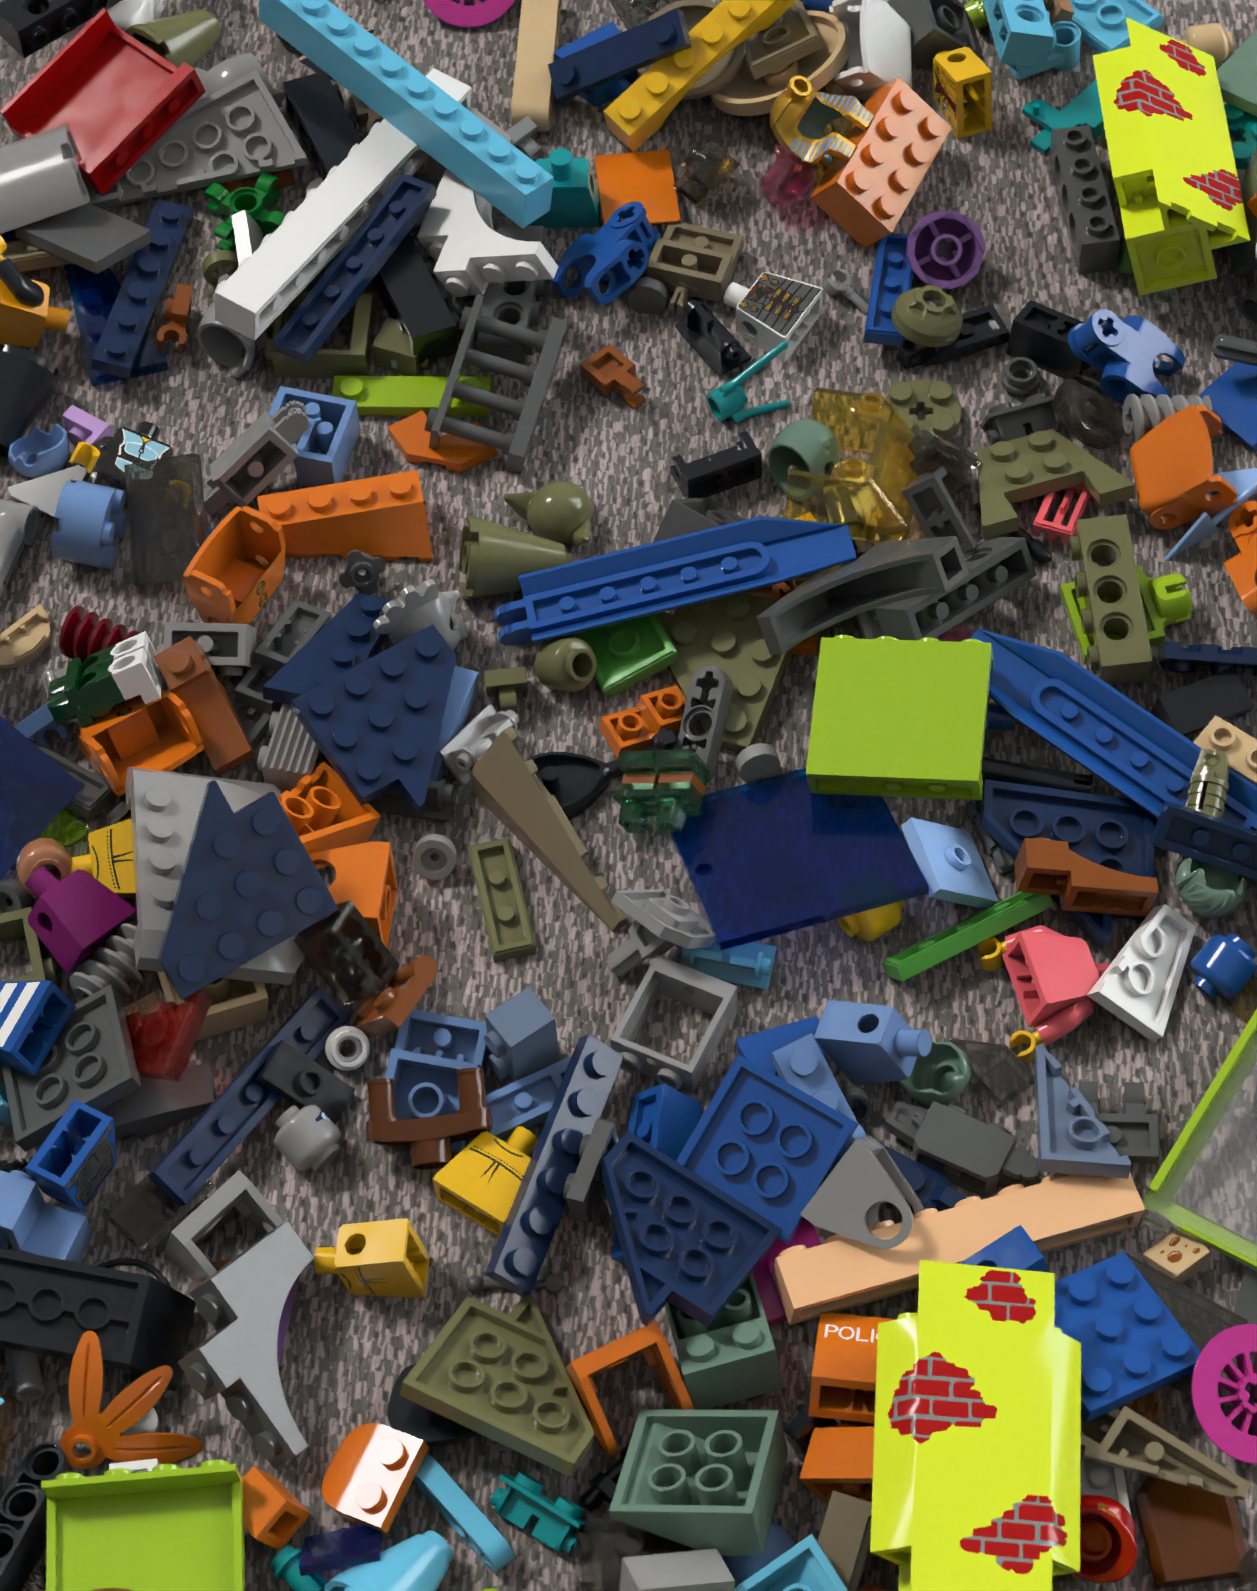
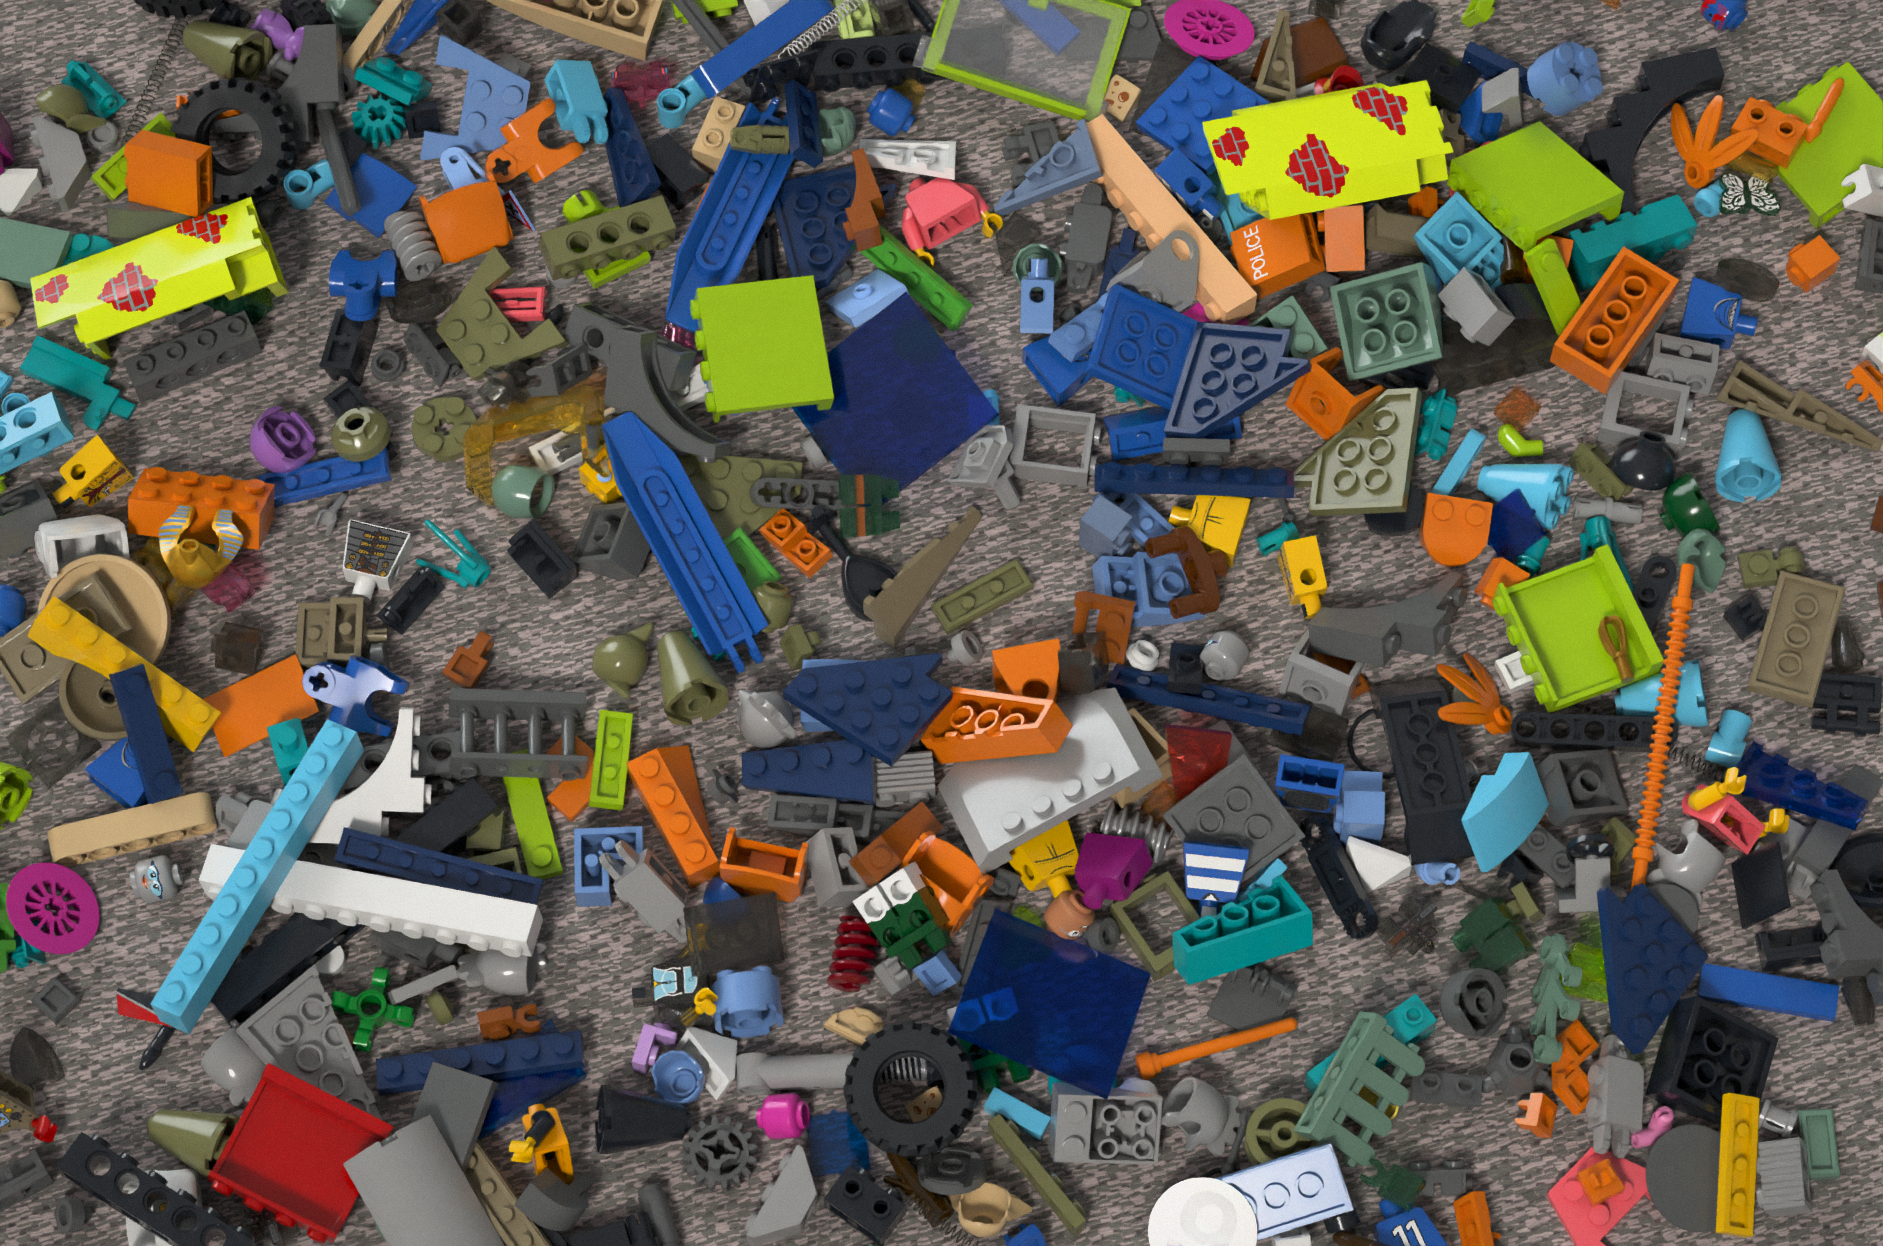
camera: 110 degrees left, 10 degrees up
(239, 891) = (1089, 712): dark blue wing -> none
(443, 473) = (610, 760): none -> lime plate
(448, 1257) = (1274, 539): none -> teal pin
(471, 62) = (156, 879): none -> light grey head
(474, 739) = (848, 644): light grey hinge -> none

